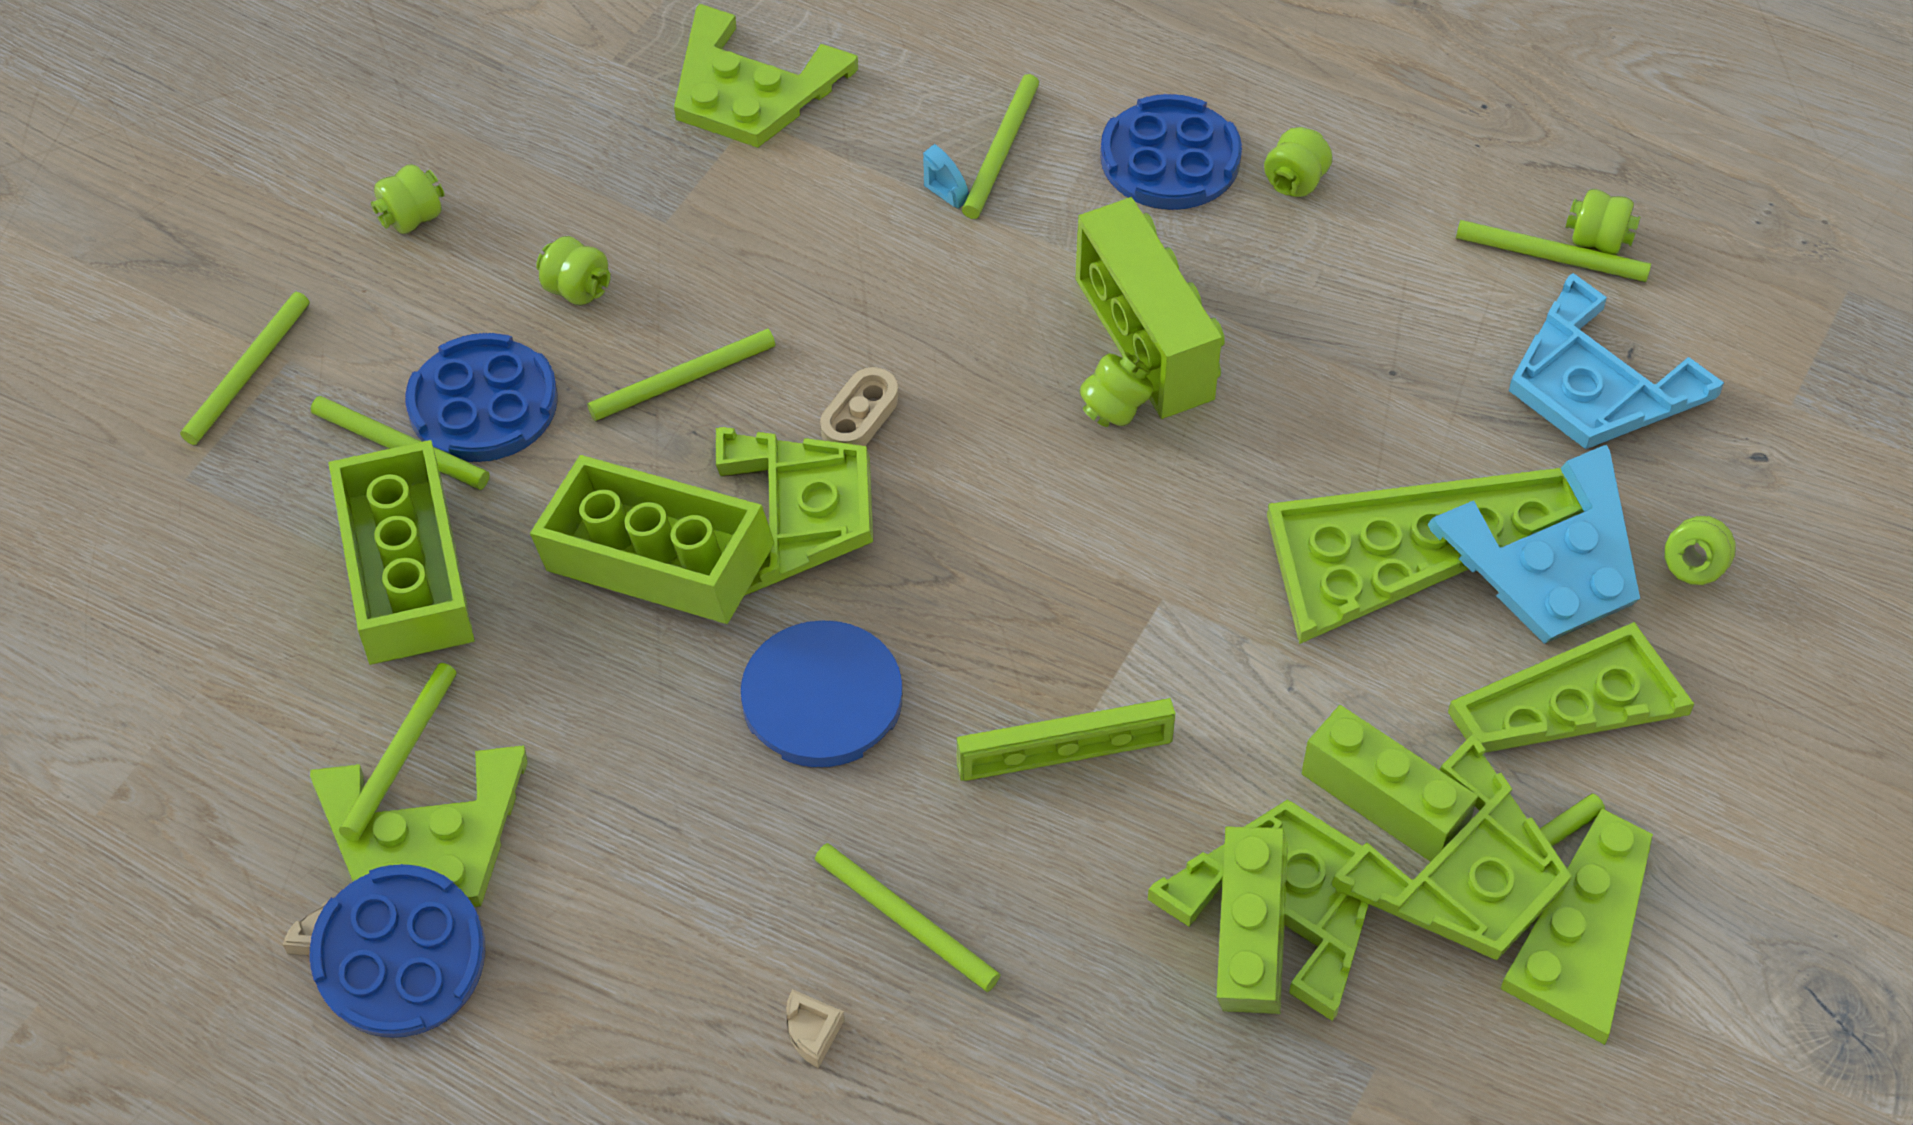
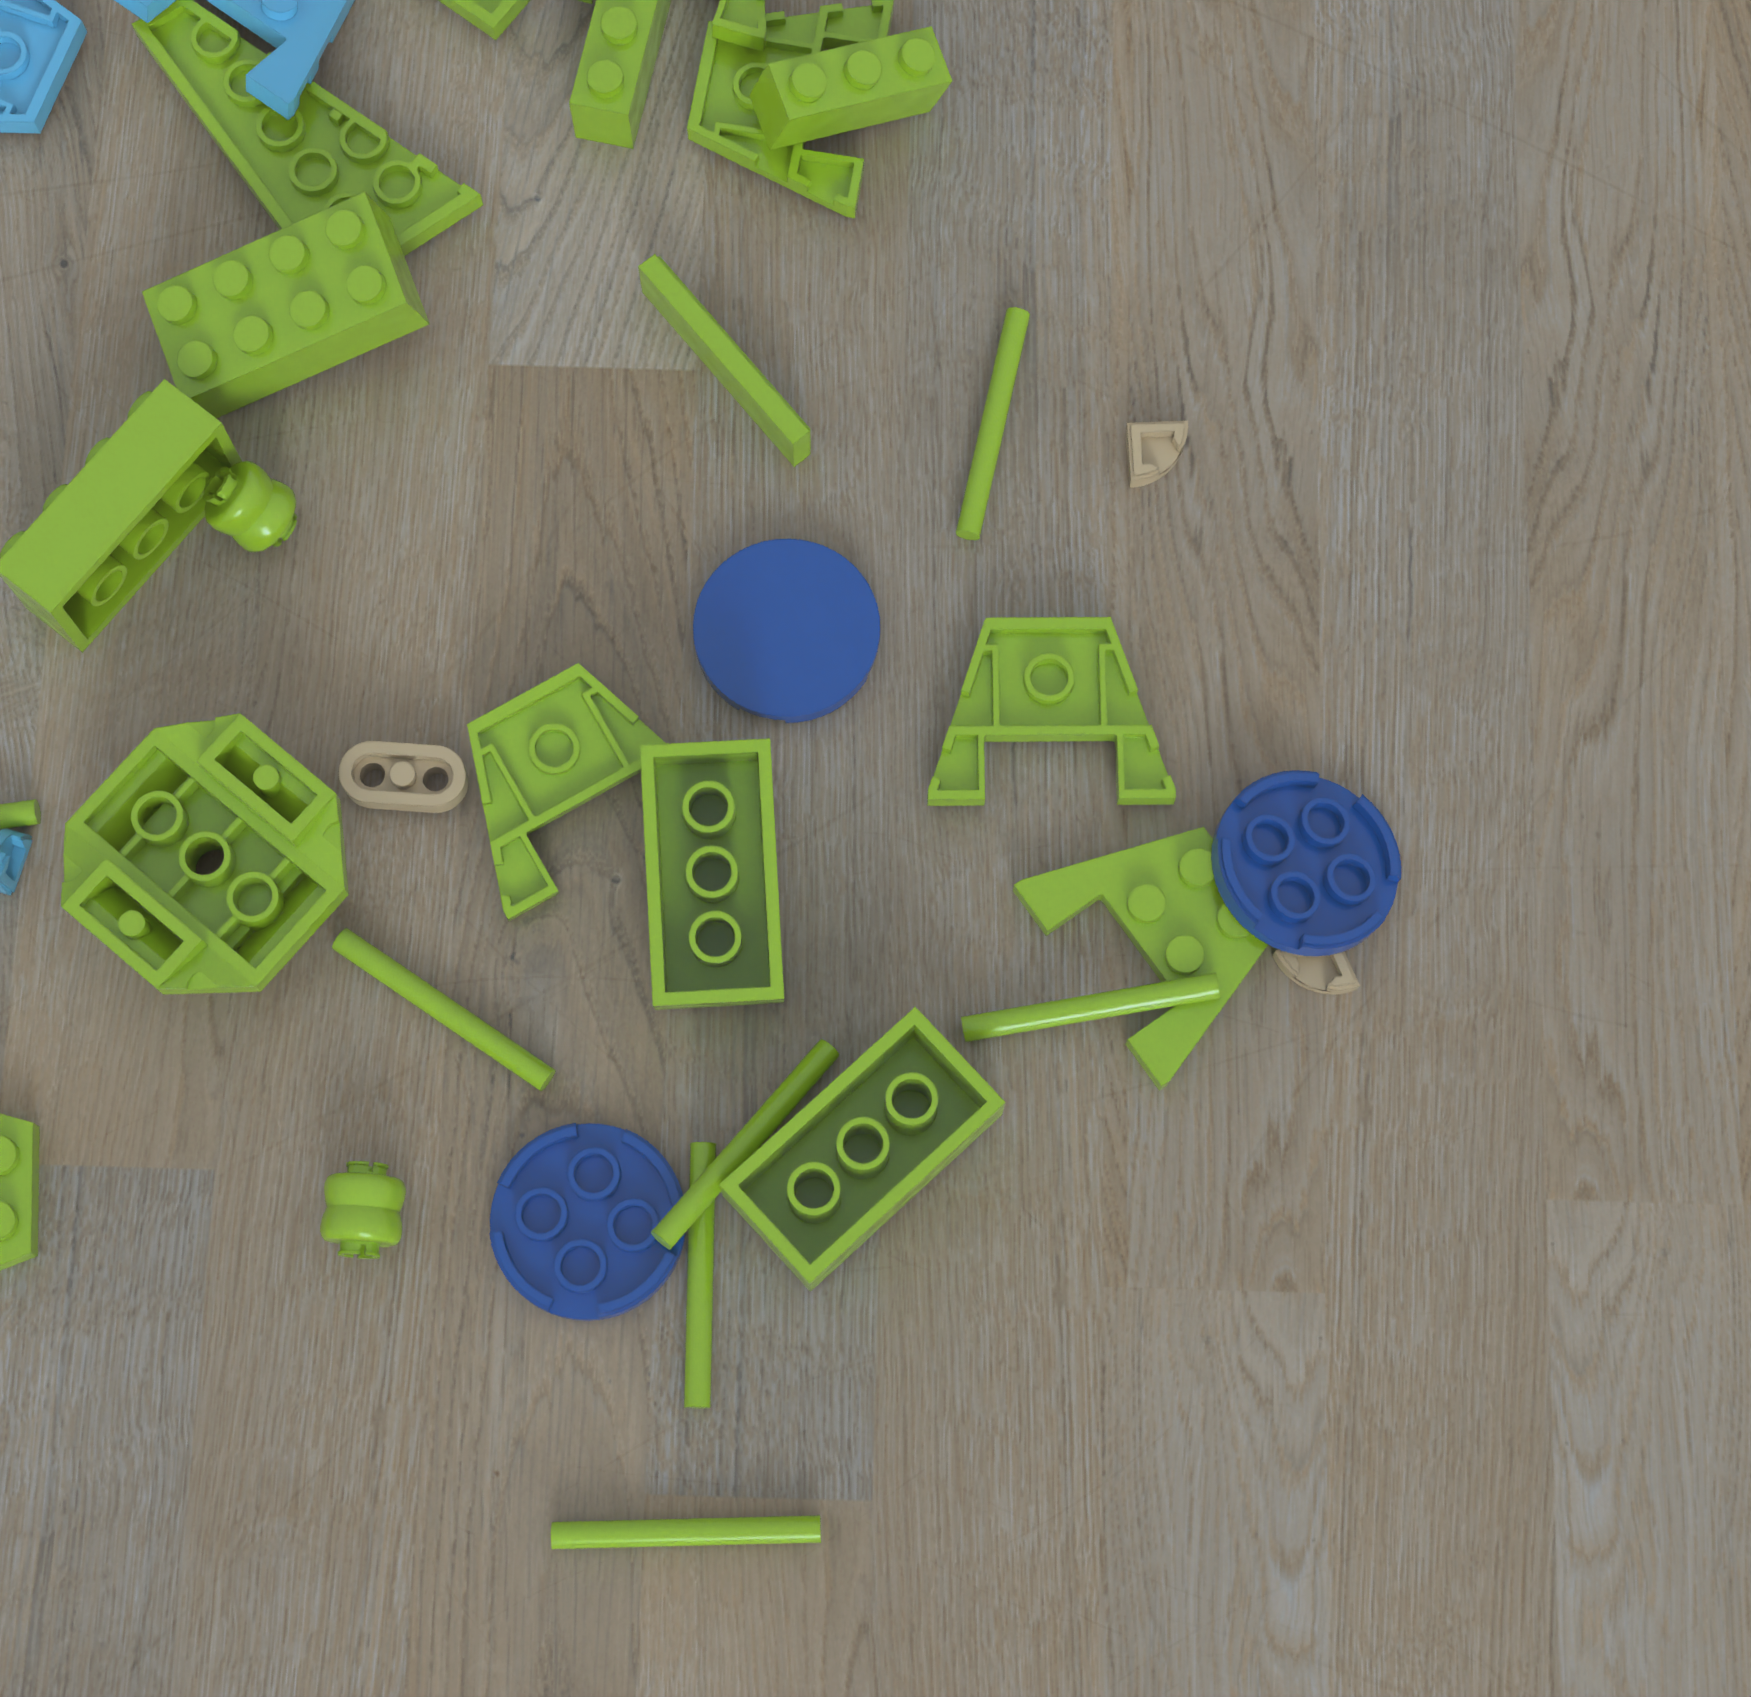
camera: 120 degrees left, 20 degrees up
(407, 199) = (346, 1489): lime piece -> none
(462, 498) = (745, 1143): none -> lime bar
(657, 847) = (1049, 685): none -> lime wing
(859, 257) = (168, 804): none -> lime piece
(1259, 460) = (286, 306): none -> lime brick

